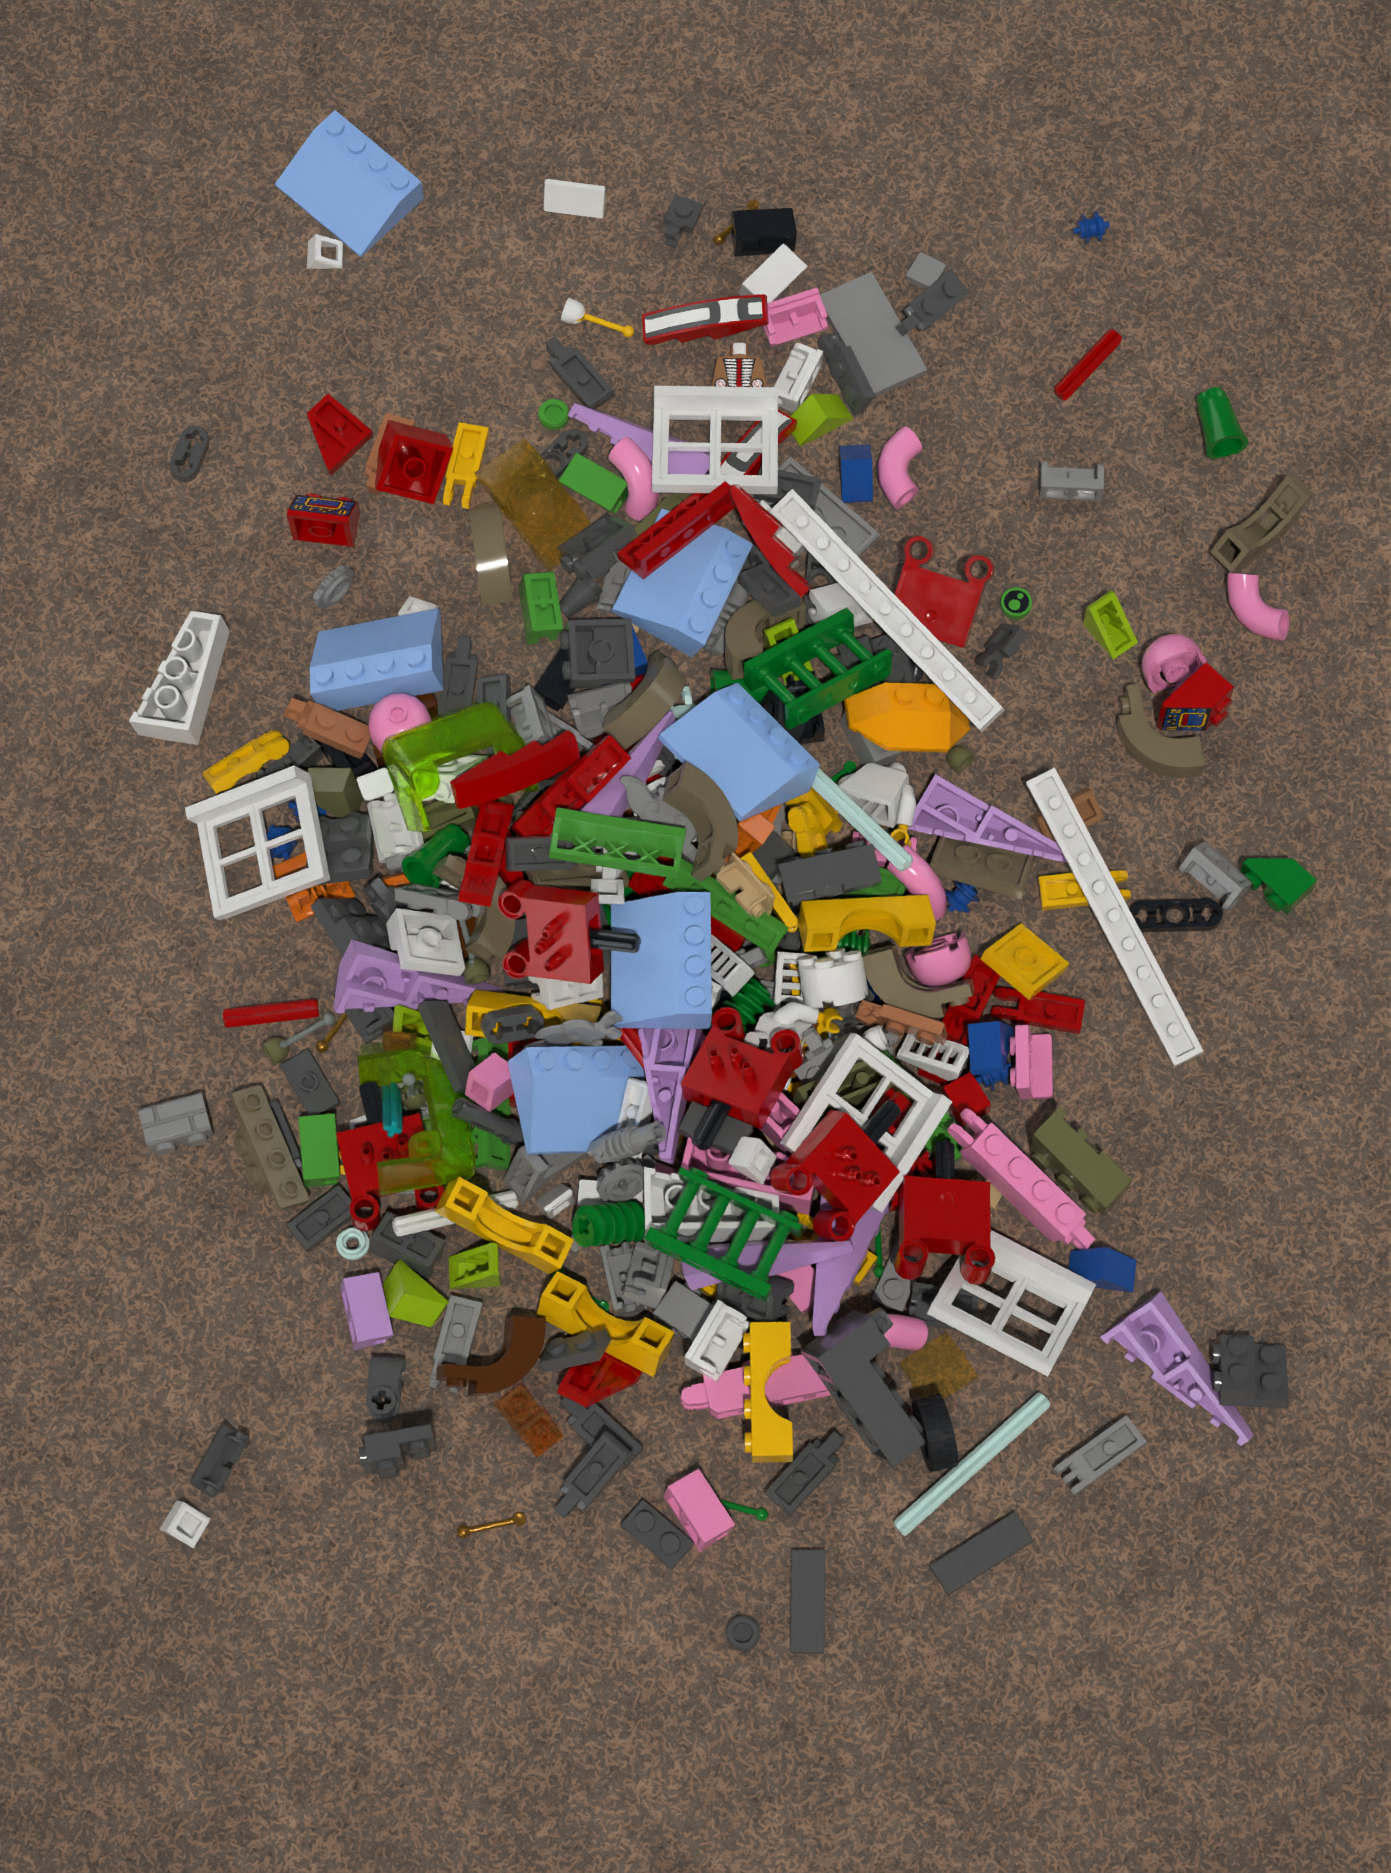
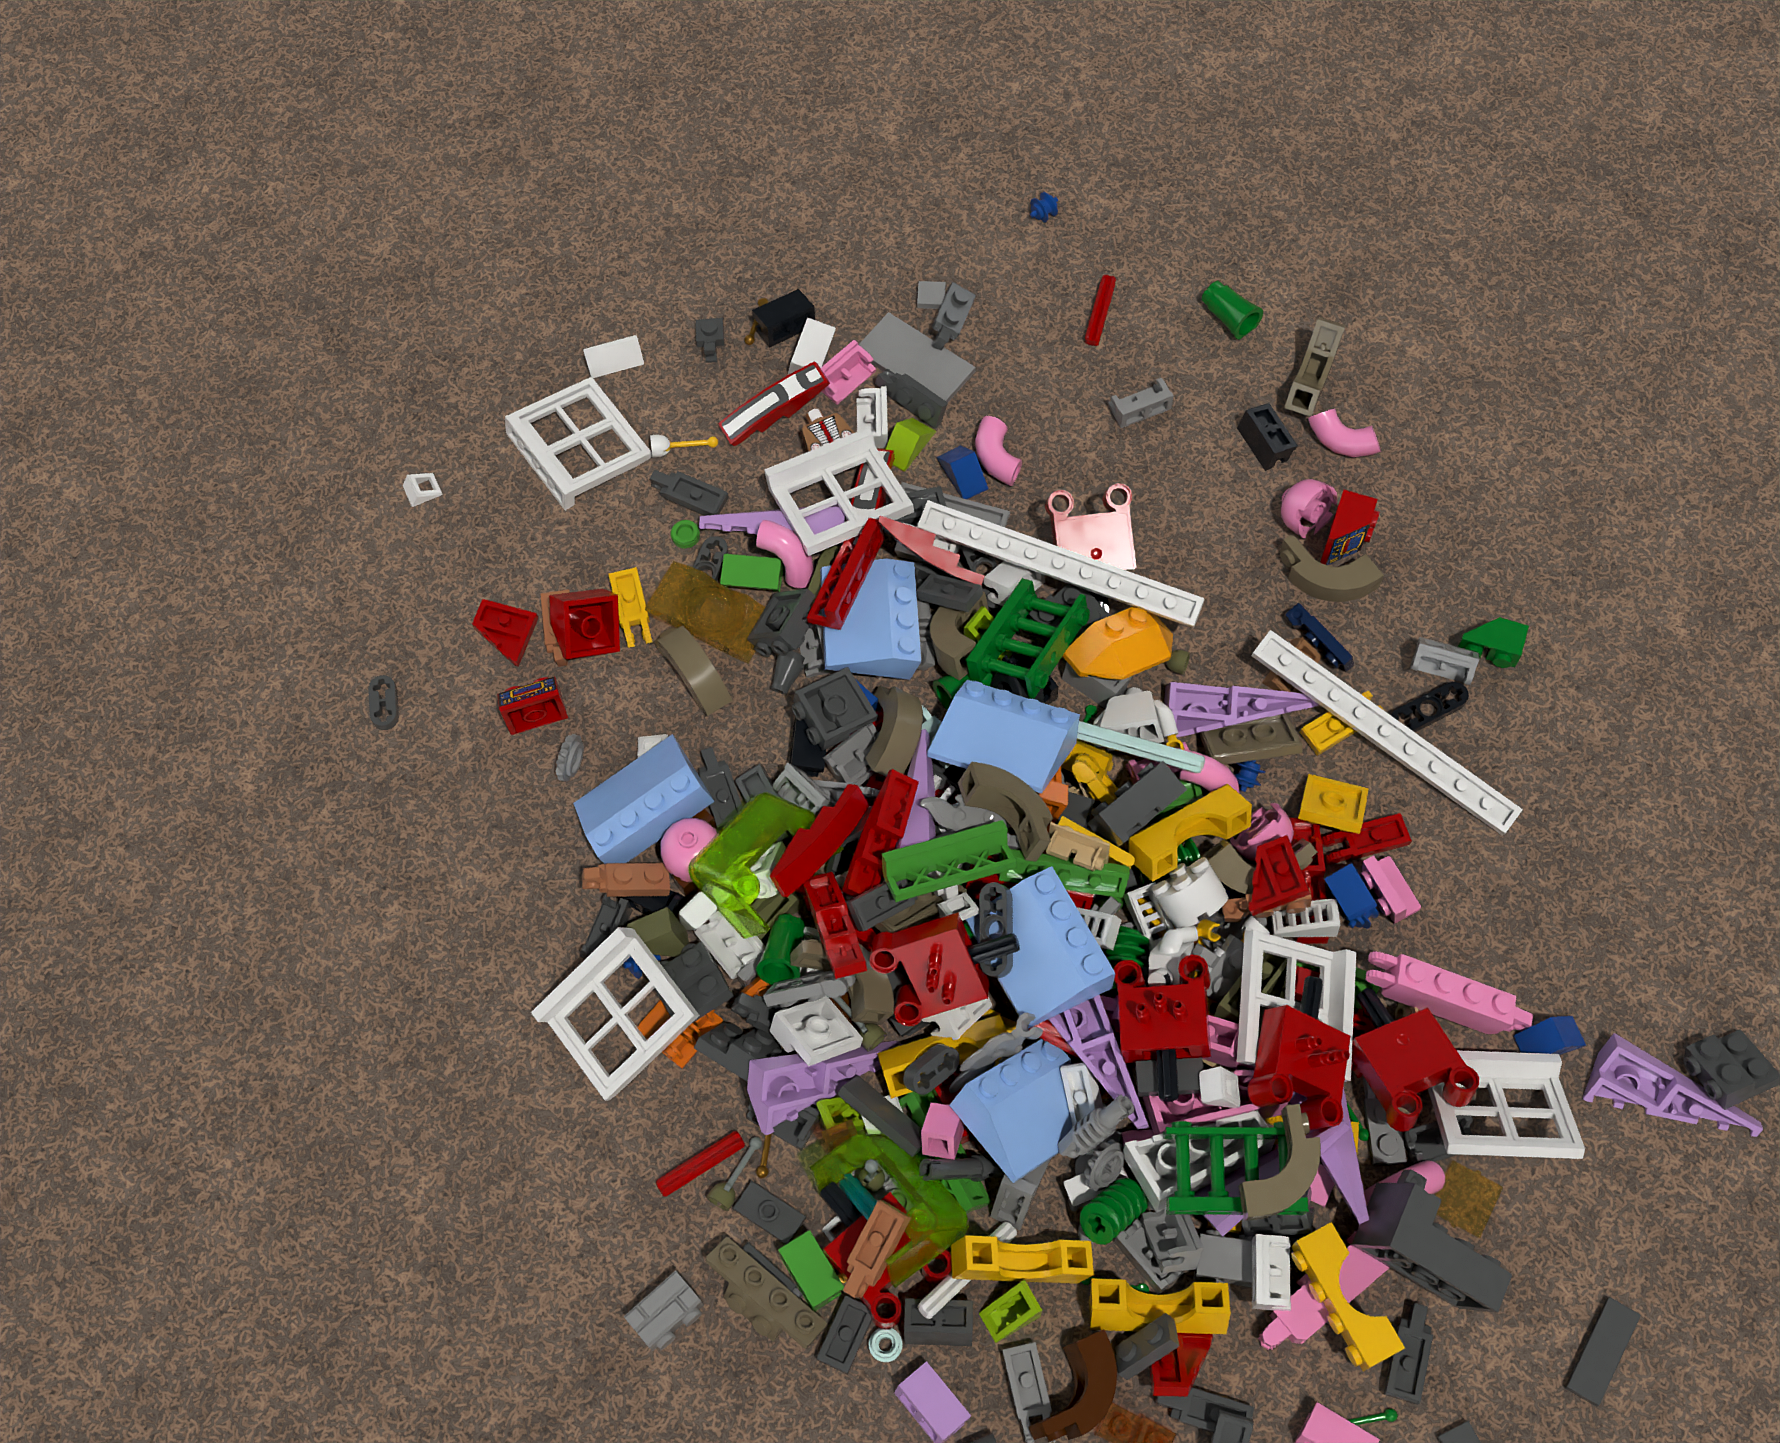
camera: 25 degrees left, 5 degrees down
(185, 683) = (477, 907): white wedge -> none
(246, 760) = (564, 945): yellow hinge -> none
(284, 850) = (625, 996): blue wheel -> none
(350, 184) = (416, 423): light blue slope -> none
(374, 1146) = (874, 1247): none -> nougat hinge
(411, 1297) = (967, 1369): lime slope -> none
(454, 272) = (543, 457): none -> white window
(540, 606) = (758, 695): bright green hinge -> none
(555, 1201) = (1047, 1211): white slope -> none
(647, 907) = (1004, 906): none -> dark grey beam
(759, 1264) = (1274, 1195): none -> dark tan arch
(918, 1000) = (1276, 876): none -> red wing
(940, 1445) = (1514, 1257): black tyre -> none
(966, 1093) = (1354, 939): red panel -> none
(971, 1464) = (1545, 1272): light aqua axle -> none
(1001, 644) = (1160, 552): dark grey plate -> none
(1016, 603) = (1151, 517): bright green tile -> none
(1078, 1164) = (1481, 956): olive wedge -> none
(1101, 1454) = (1650, 1205): light grey hinge -> none
(1109, 625) = (1238, 500): lime slope -> none
(1110, 797) = (1320, 636): none -> dark blue hinge
(1177, 572) = (1266, 436): none -> black hinge

